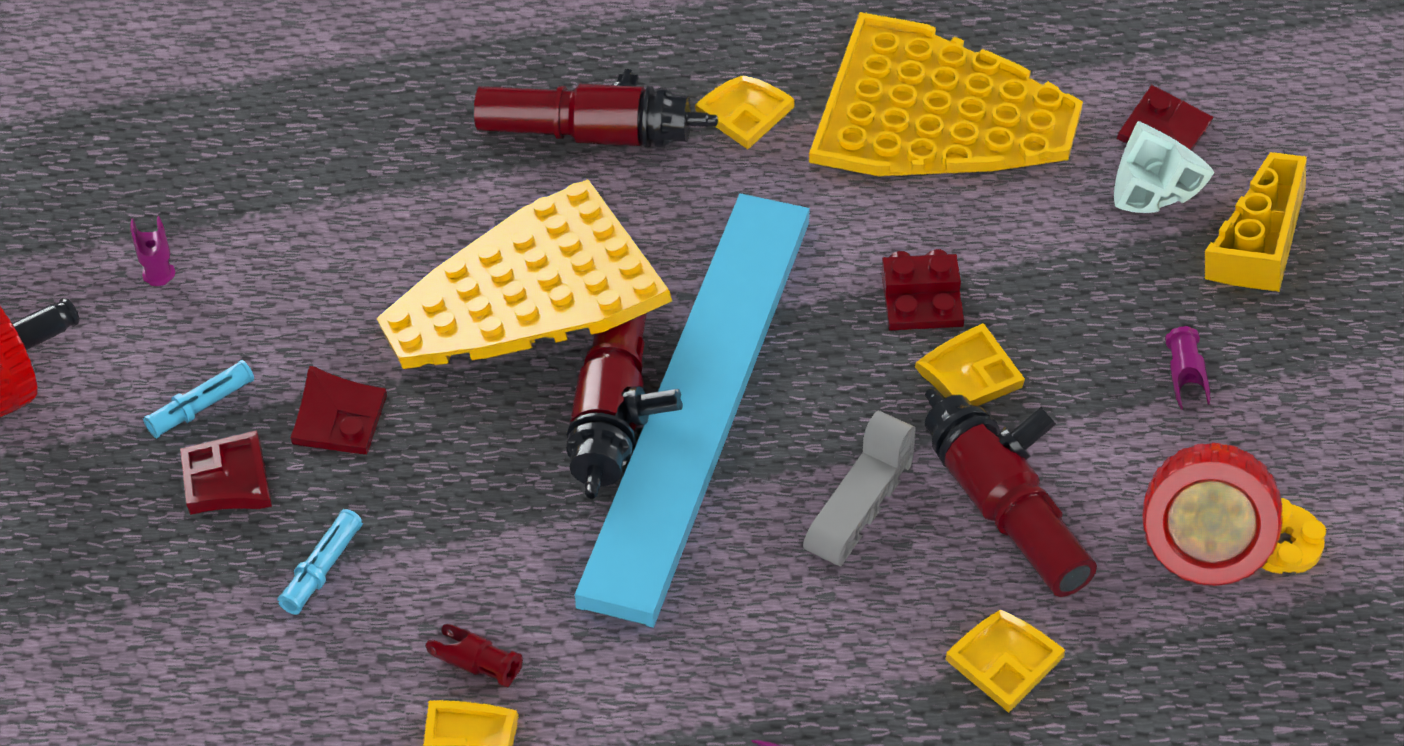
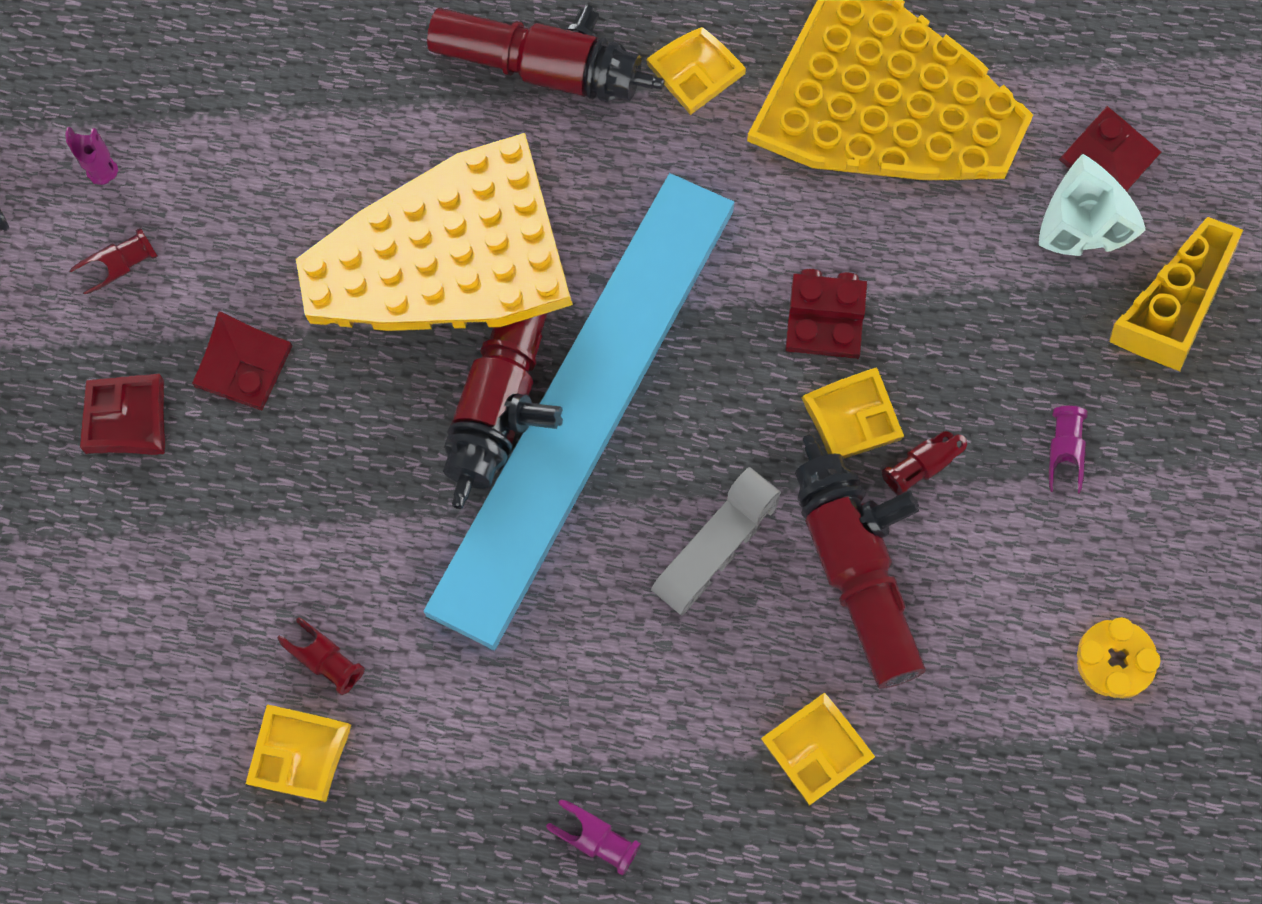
camera: 10 degrees right, 20 degrees up
(186, 406) = (73, 343): medium azure pin -> none
(193, 341) = (120, 258): none -> dark red piece
(311, 573) = (196, 527): medium azure pin -> none
(1051, 395) = (924, 461): none -> dark red piece
(1212, 514) = (1050, 642): wheel -> none

